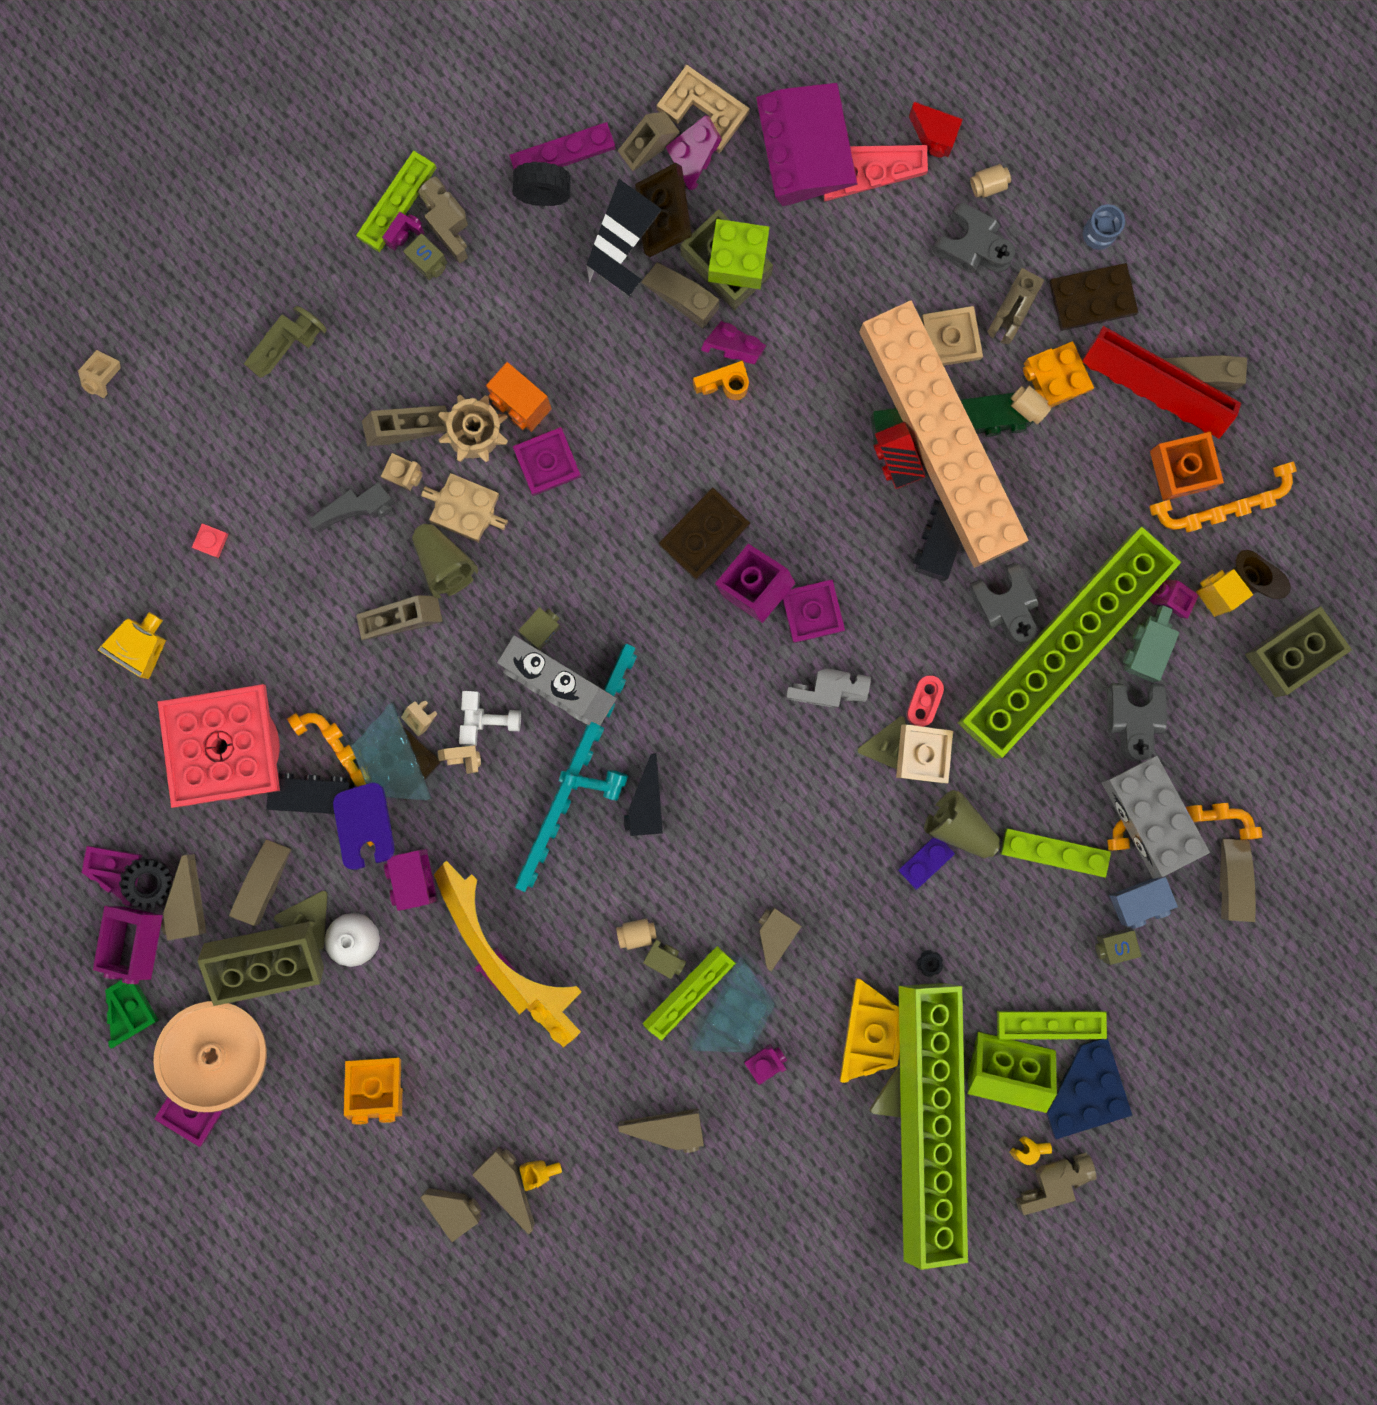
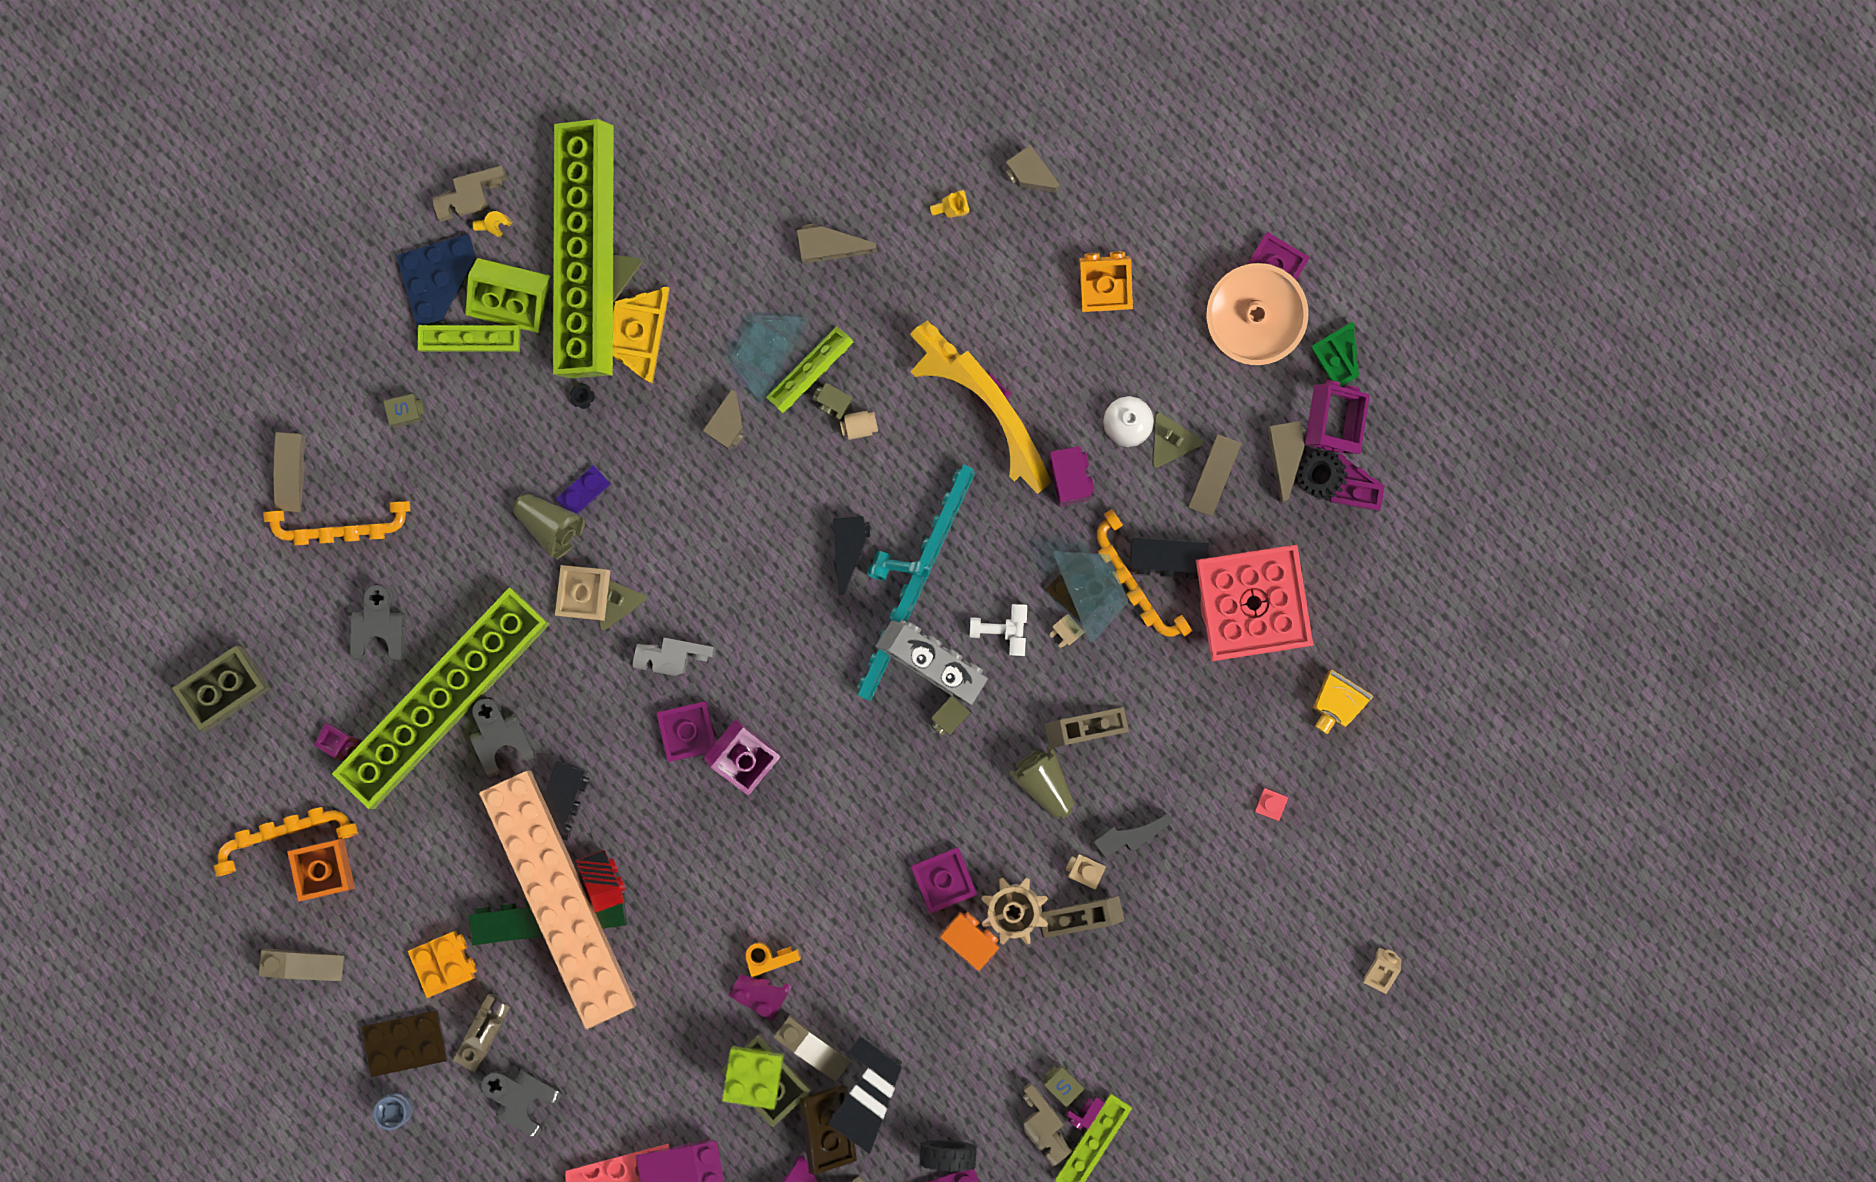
camera: 175 degrees left, 0 degrees up
(261, 963) = (1210, 398): olive brick -> none
(280, 339) = (1204, 1006): olive piece -> none
(363, 818) = (1117, 532): dark purple piece -> none
(456, 756) = (1024, 594): tan bracket -> none
(464, 507) = (1024, 835): tan plate -> none
(503, 1181) = (985, 200): dark tan slope -> none
(704, 534) = (791, 808): dark brown plate -> none
(766, 1063) = (738, 304): magenta bracket -> none
(924, 701) = (579, 643): coral plate -> none
(954, 335) = (545, 1003): tan plate -> none
(990, 181) = (503, 1161): tan brick -> none
(1030, 404) = (472, 929): tan brick -> none
(1055, 853) = (460, 499): lime plate -> none
(1143, 902) = (378, 452): sand blue brick -> none
(1152, 646) = (360, 695): sand green hinge -> none
(1155, 817) = (365, 530): light grey brick -> none
(1161, 382) = (342, 953): red brick -> none
(1223, 592) = (291, 745): yellow brick -> none
(1261, 575) = (254, 762): dark brown piece -> none

